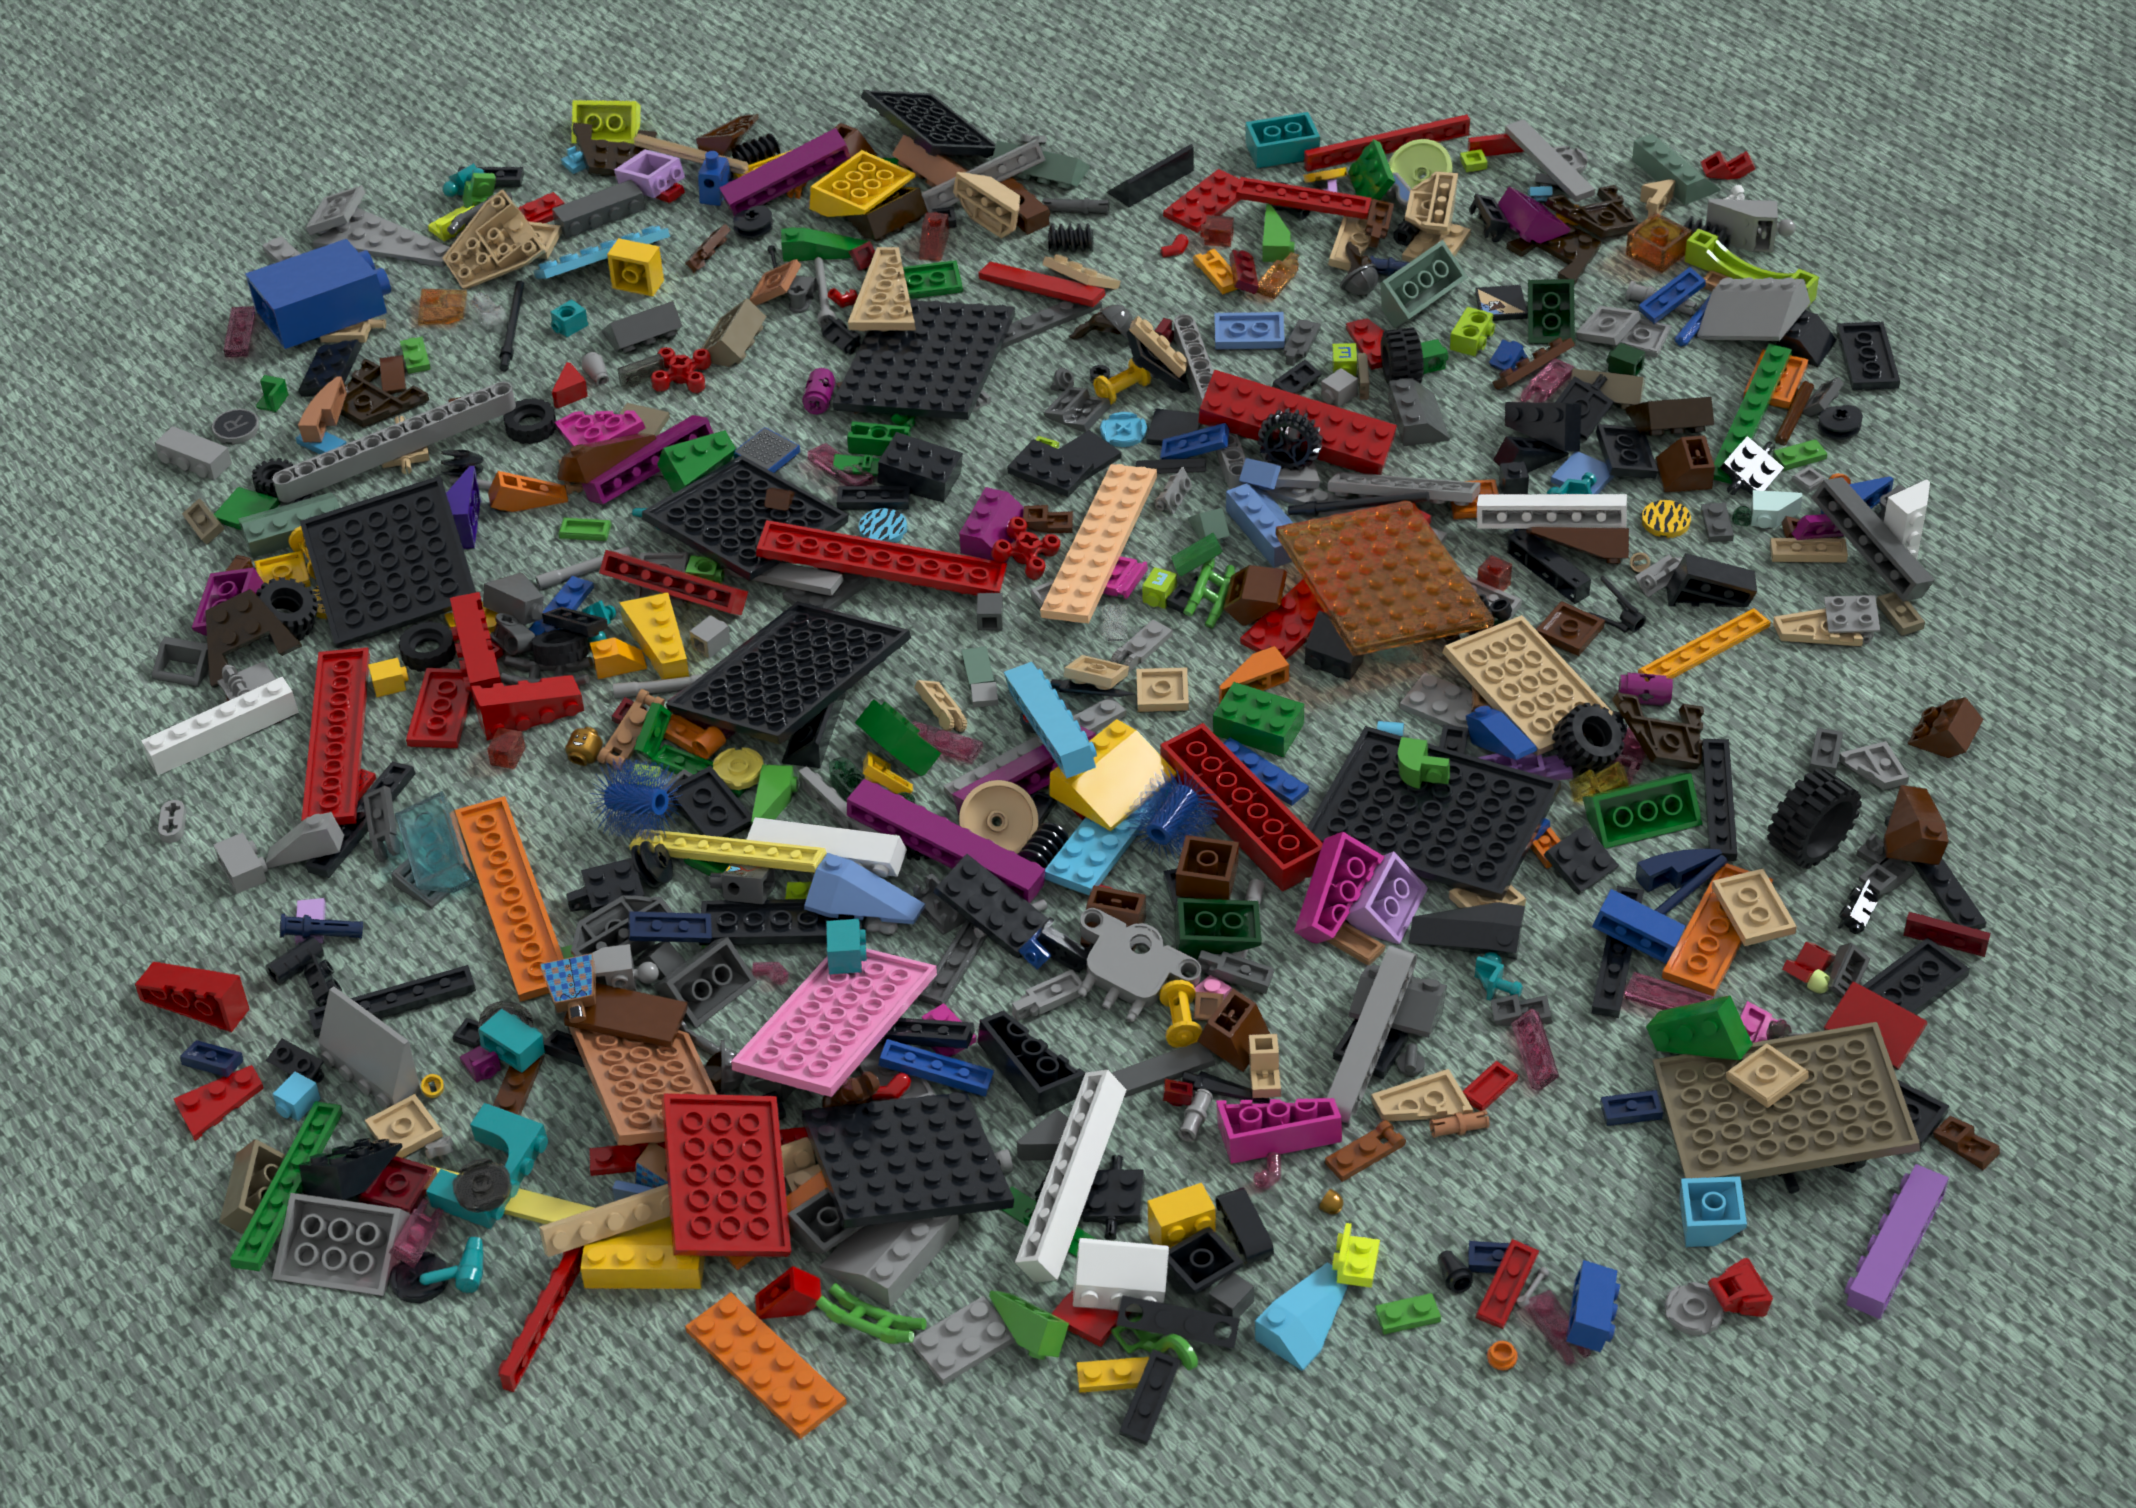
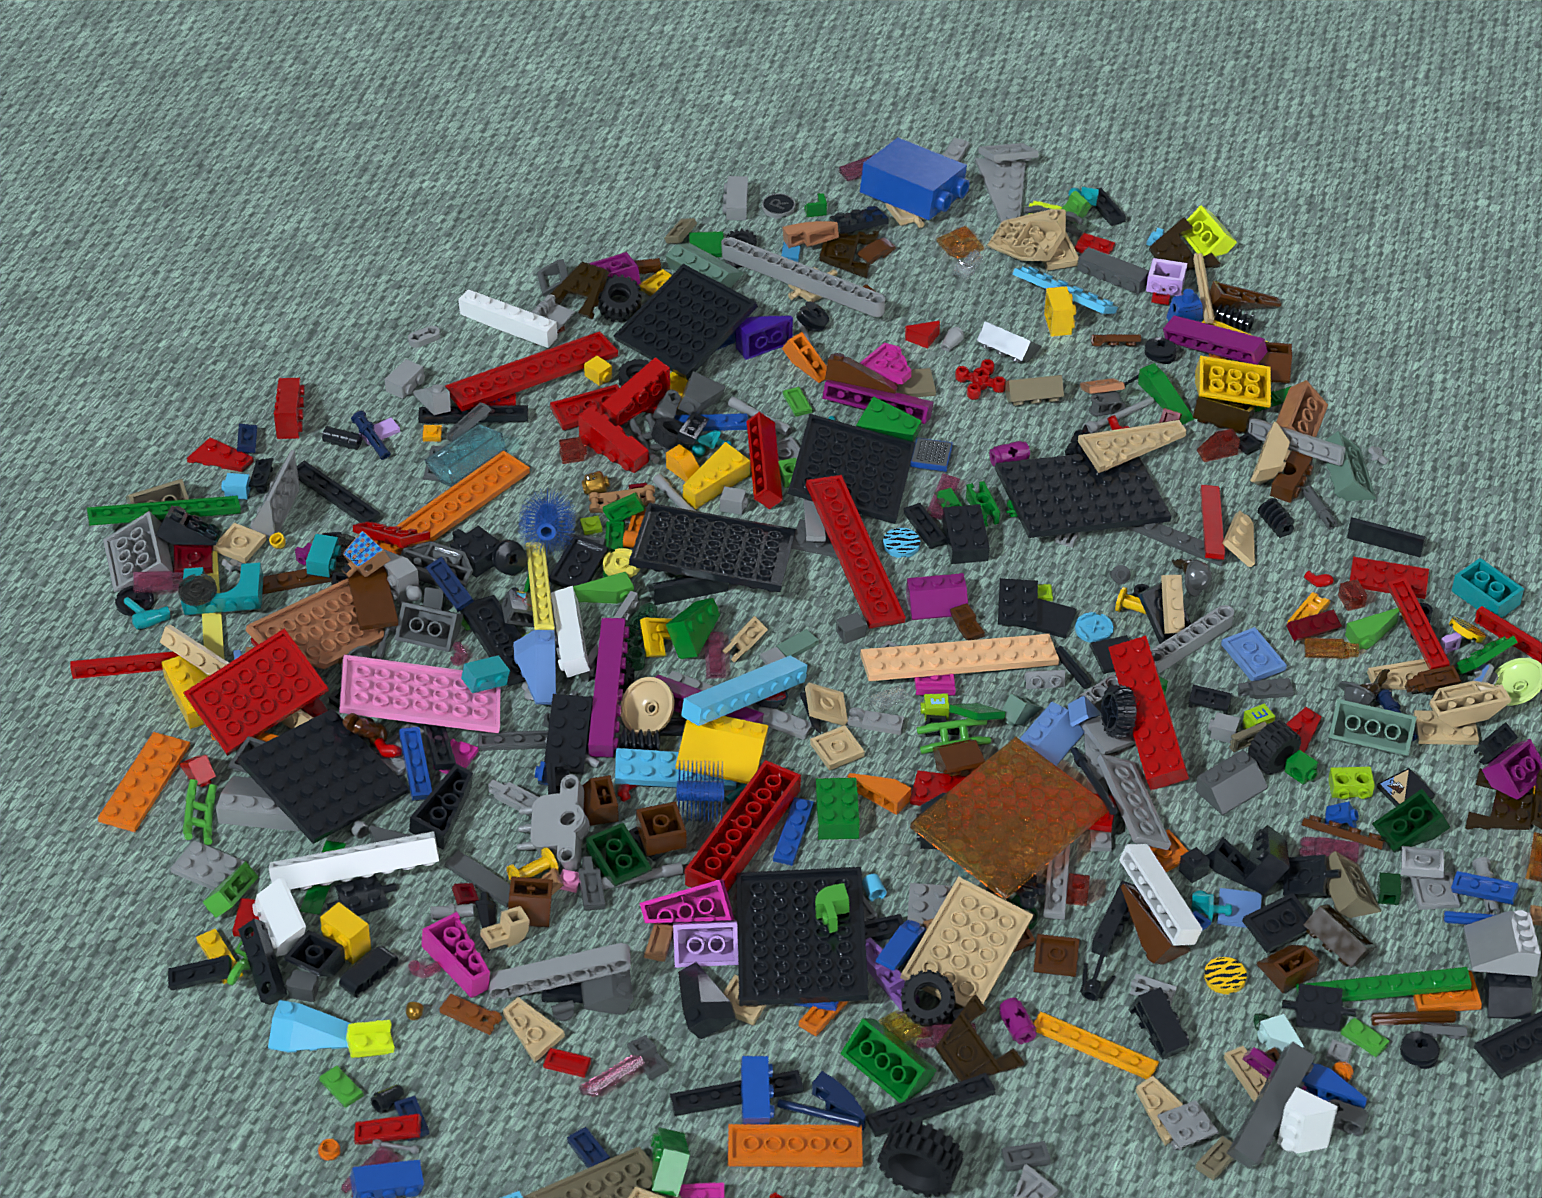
camera: 60 degrees right, 0 degrees up
(320, 976) = (334, 458): black hinge -> none
(357, 871) = (432, 433): none -> light orange plate
(415, 355) = (904, 252): bright green plate -> none
(507, 351) = (938, 292): black bar -> none
(527, 960) = (391, 534): none -> red wing
(530, 433) = (876, 340): black tyre -> none
(568, 318) = (989, 304): teal brick -> none
(640, 371) = (959, 358): clear smoke plate -> none
(778, 498) = (880, 476): reddish brown slope -> none
(930, 123) = (1333, 389): black plate -> none
(933, 279) = (1175, 463): green tile -> none
(1025, 548) = (925, 620): red gear -> none
(1077, 409) = (1096, 594): dark grey slope -> none
(1165, 329) = (1208, 605): dark red plate -> none
(1195, 442) = (1095, 667): blue plate -> none
(1459, 1123) = (520, 1056): nougat pin -> none
(1490, 972) = (664, 1029): teal piece -> none
(1581, 860) = (812, 1040): black plate -> none
(1638, 557) = (1155, 973): tan hinge -> none
(1661, 993) = (708, 1138): clear pink plate -> none
(1717, 522) = (1244, 1008): dark grey plate -> none
(1754, 907) = (817, 1155): tan plate -> none

